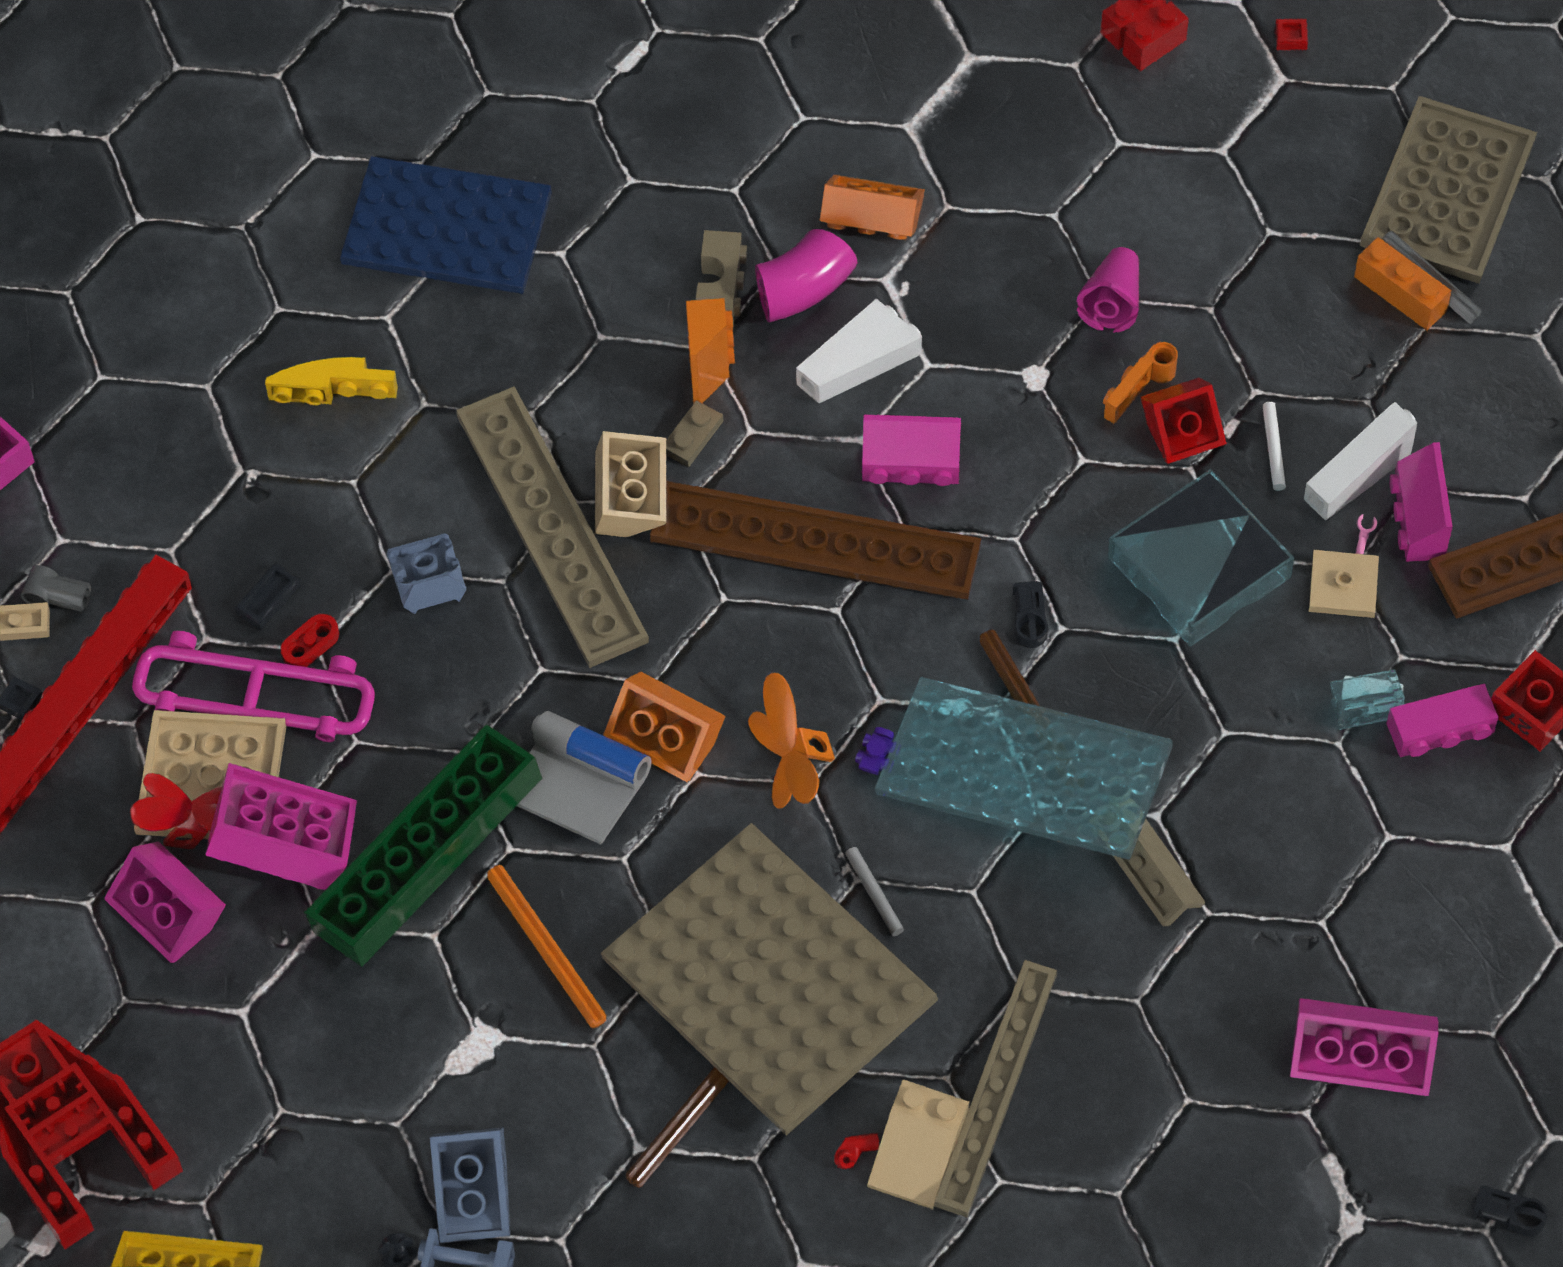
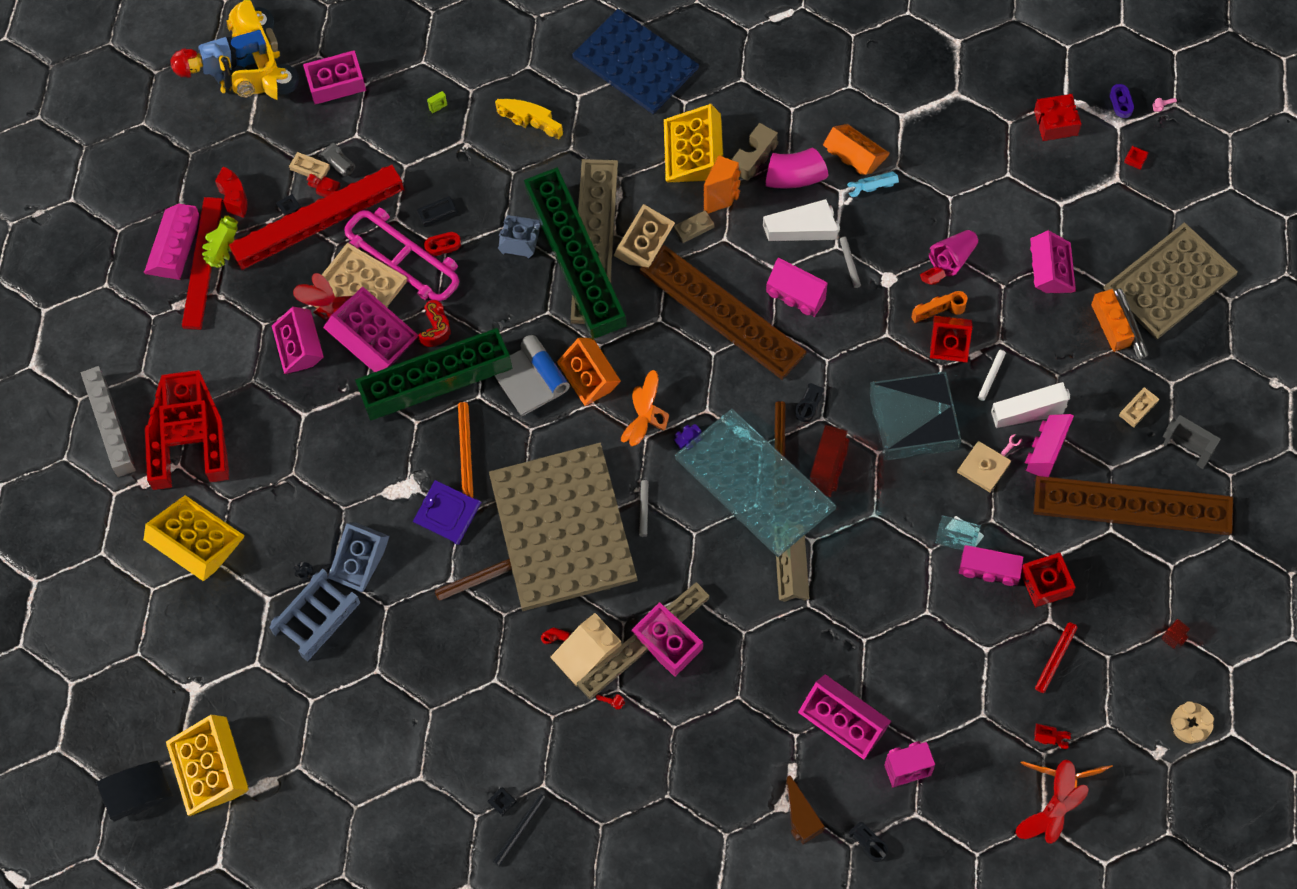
camera: 30 degrees right, 5 degrees up
(60, 643) = (323, 187): none -> red plate
(166, 427) = (437, 102): none -> lime tile
(379, 763) = (441, 327): none -> red animal
(540, 554) = (575, 253): none -> dark green brick
(578, 1047) = (450, 513): none -> dark purple container
(618, 311) = (692, 144): none -> yellow slope
(926, 245) = (871, 183): none -> medium azure plate
(964, 377) = (850, 262): none -> light grey bar
(1011, 1202) = (617, 702): none -> red hand
(1036, 1063) = (668, 639): none -> dark pink slope
(1101, 339) = (932, 275): none -> red plate
(1116, 677) = (830, 460): none -> clear red brick
(1265, 242) = (1052, 263): none -> dark pink slope
(1391, 1222) = (804, 820): none -> reddish brown slope
(1503, 1064) = (909, 763): none -> dark pink brick
(1514, 391) = (1139, 407): none -> tan plate

